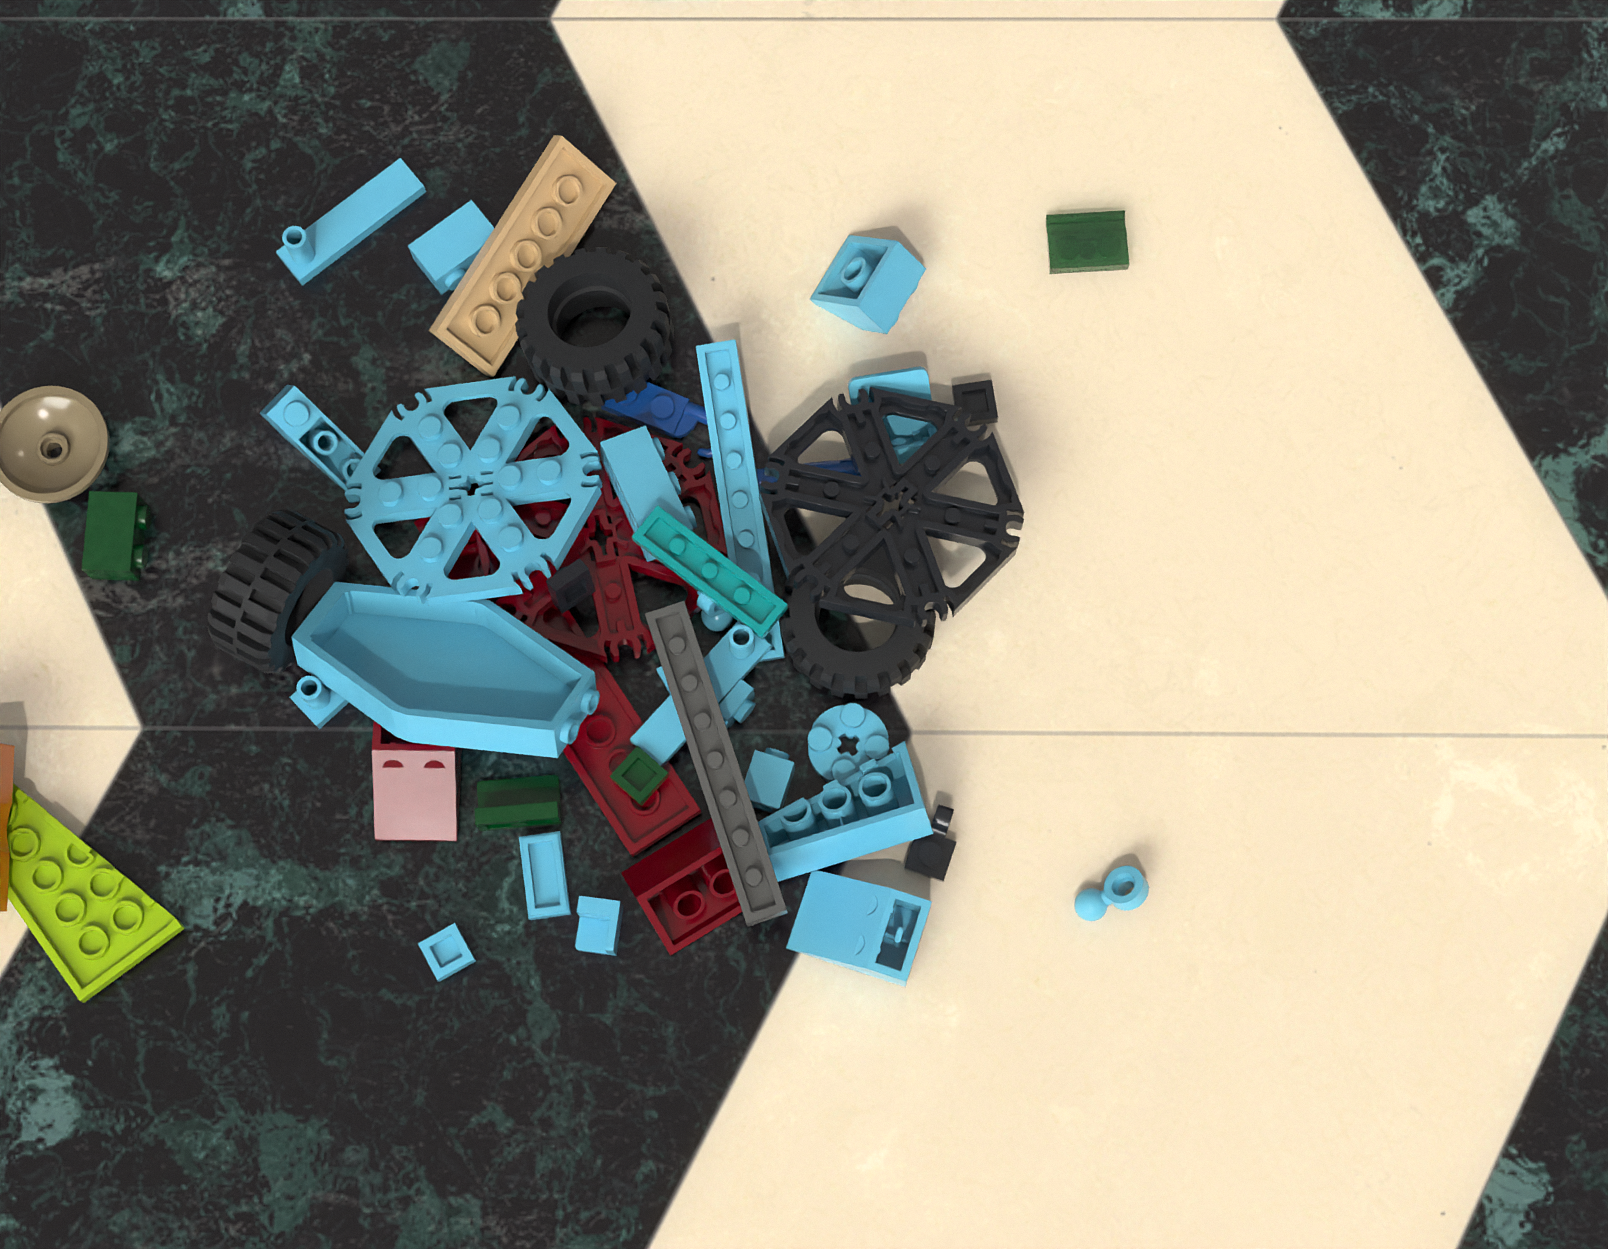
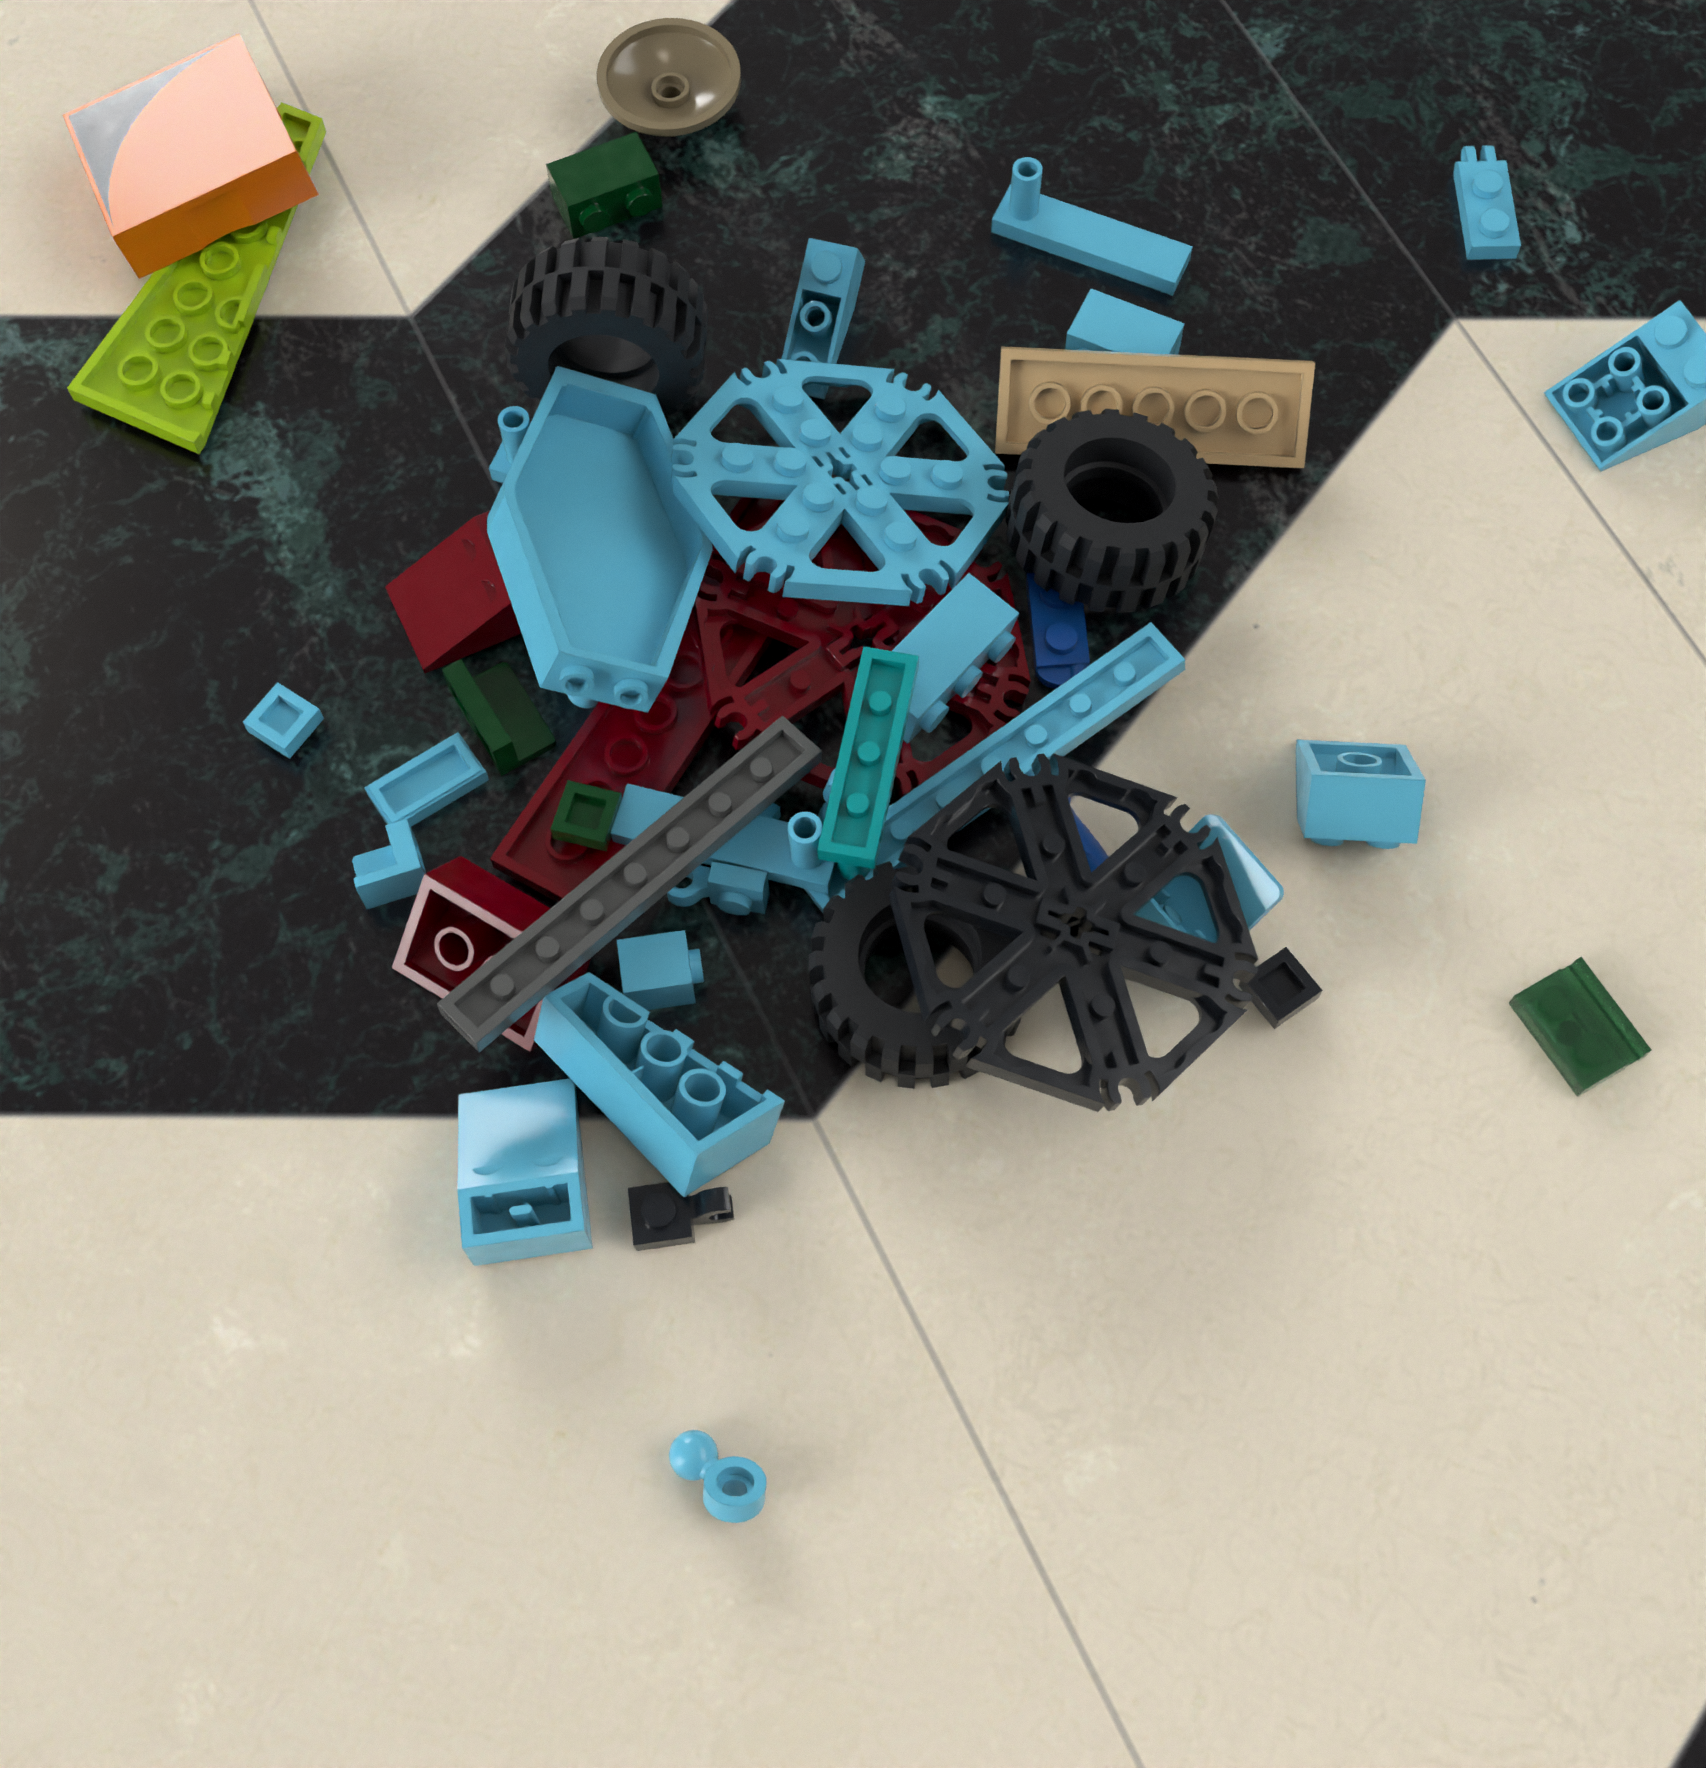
camera: 60 degrees right, 10 degrees down
(570, 585) = (773, 621): black plate -> none
(847, 721) = (762, 1015): medium azure plate -> none

